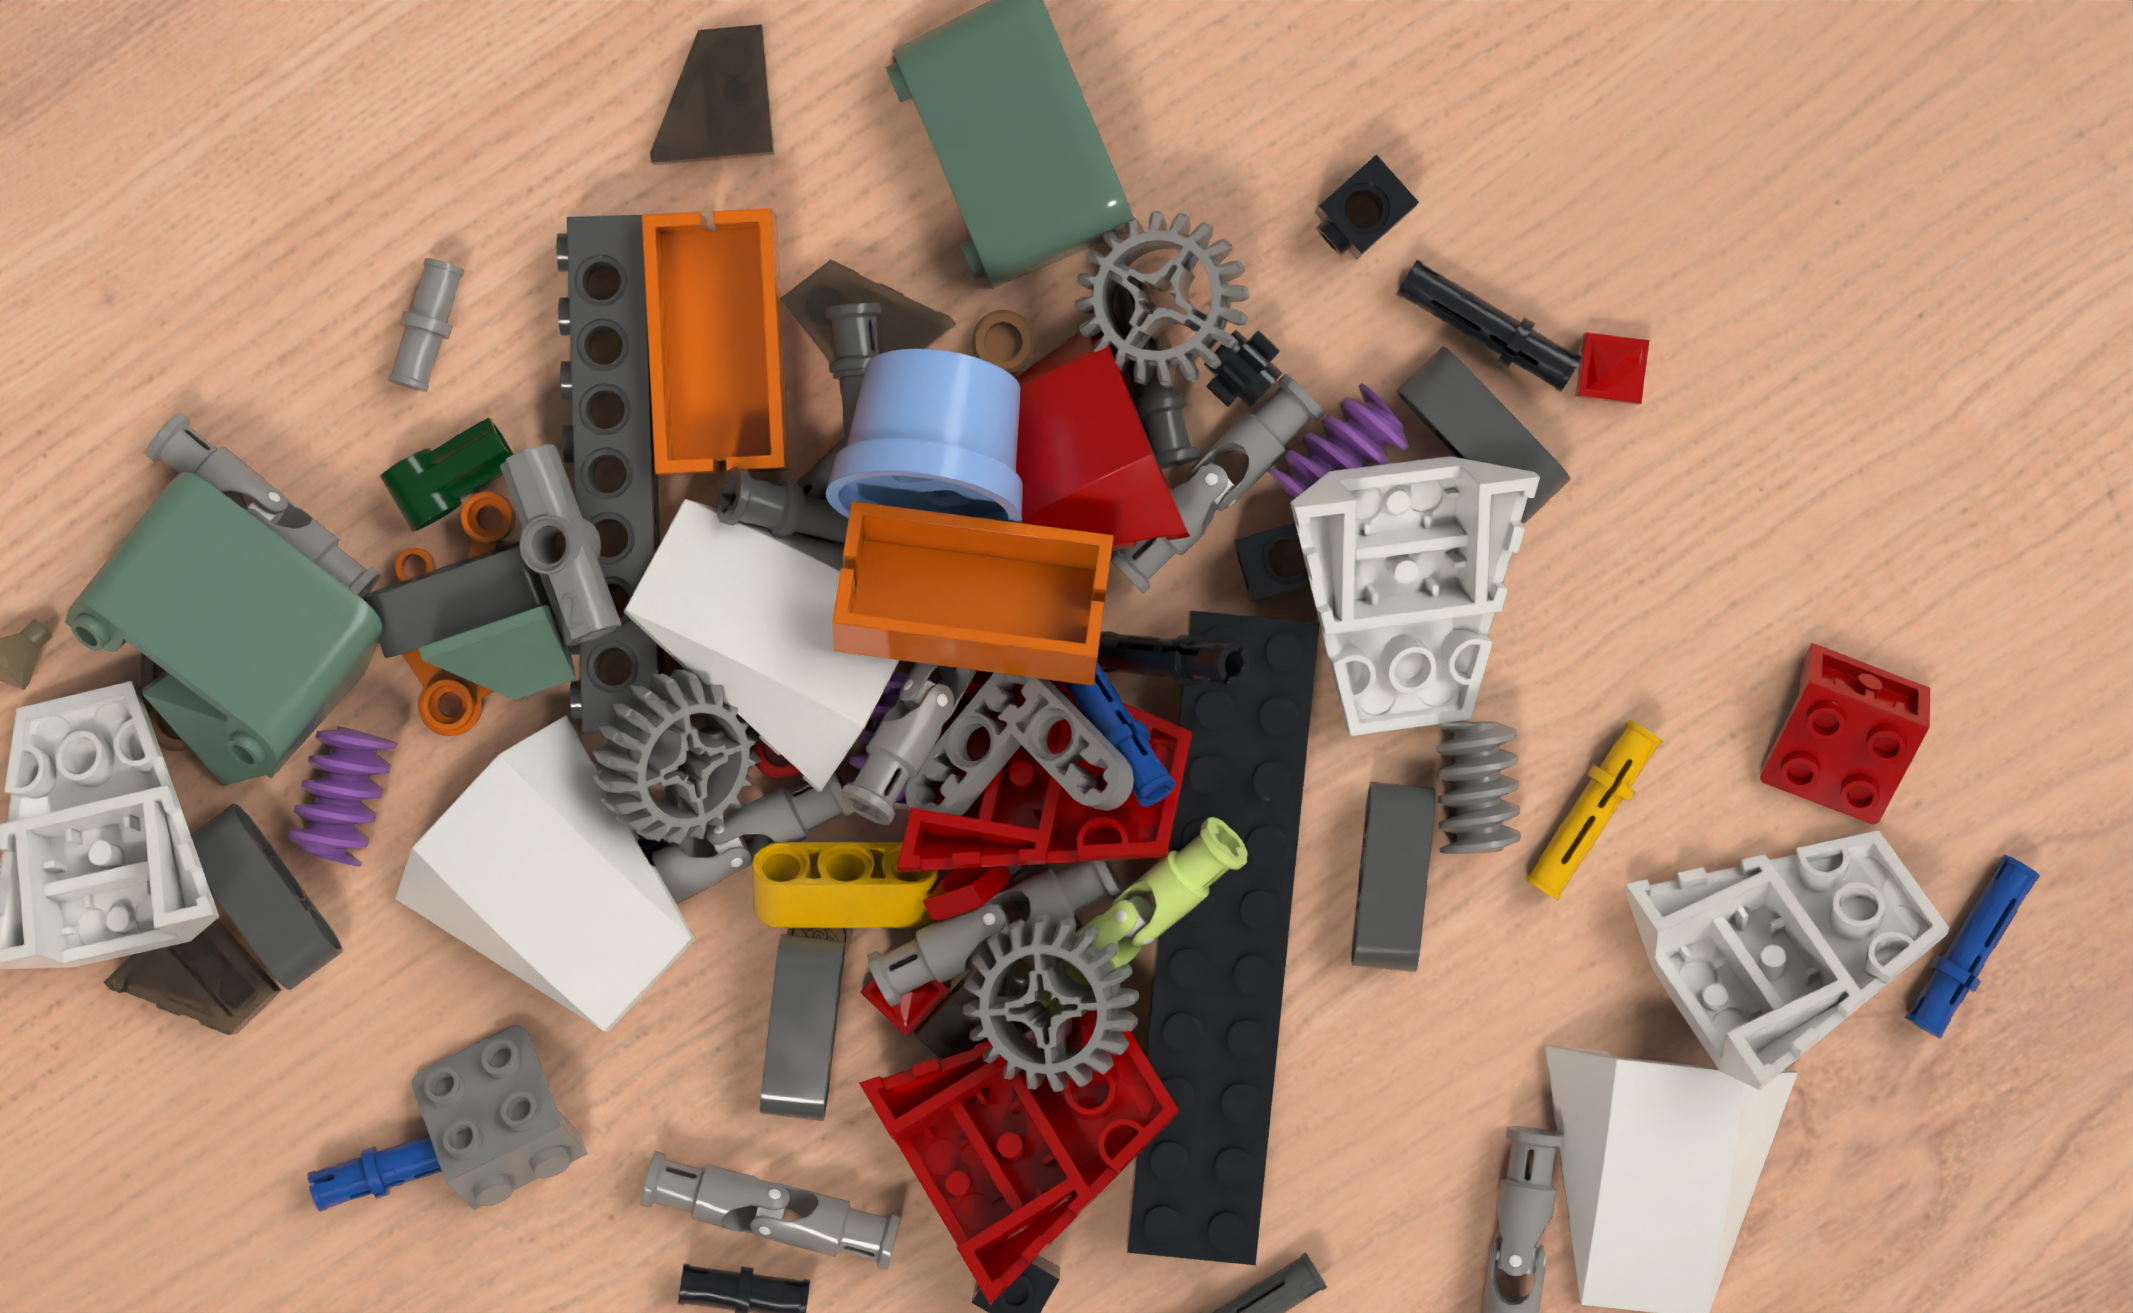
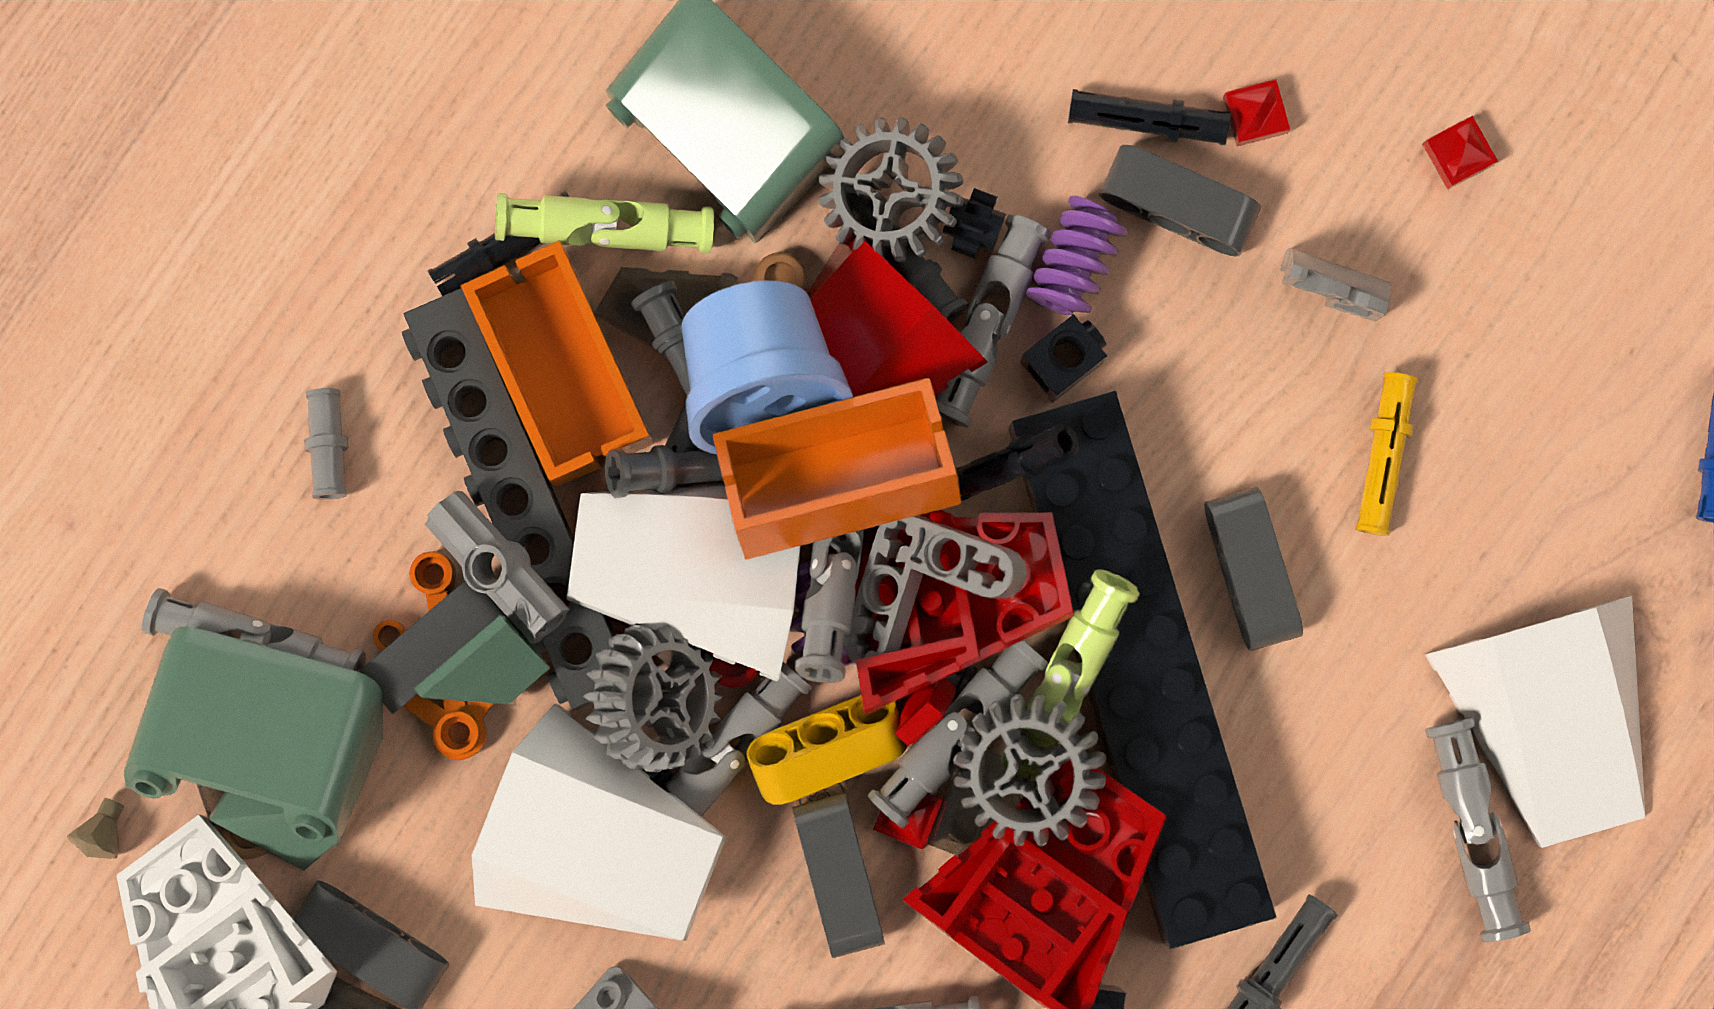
camera: 20 degrees left, 5 degrees down
(341, 794) = (399, 837): medium lavender piece -> none
(435, 481) = (379, 564): dark green piece -> none
(709, 180) = (480, 259): none -> black pin
(719, 100) = (480, 166): clear smoke wing -> none
(810, 195) = (595, 223): none -> yellowish green piece
(1130, 737) = (982, 523): blue pin -> none
(1380, 185) = (1021, 44): black brick -> none
(1409, 582) = (1173, 332): white wedge -> none
(1478, 787) = (1290, 471): light grey piece -> none
(1617, 598) = (1344, 287): none -> light grey slope
(1783, 946) = (1581, 500): white wedge -> none
(1821, 505) = (1460, 152): none -> red tile
(1848, 735) = (1559, 318): red bracket -> none

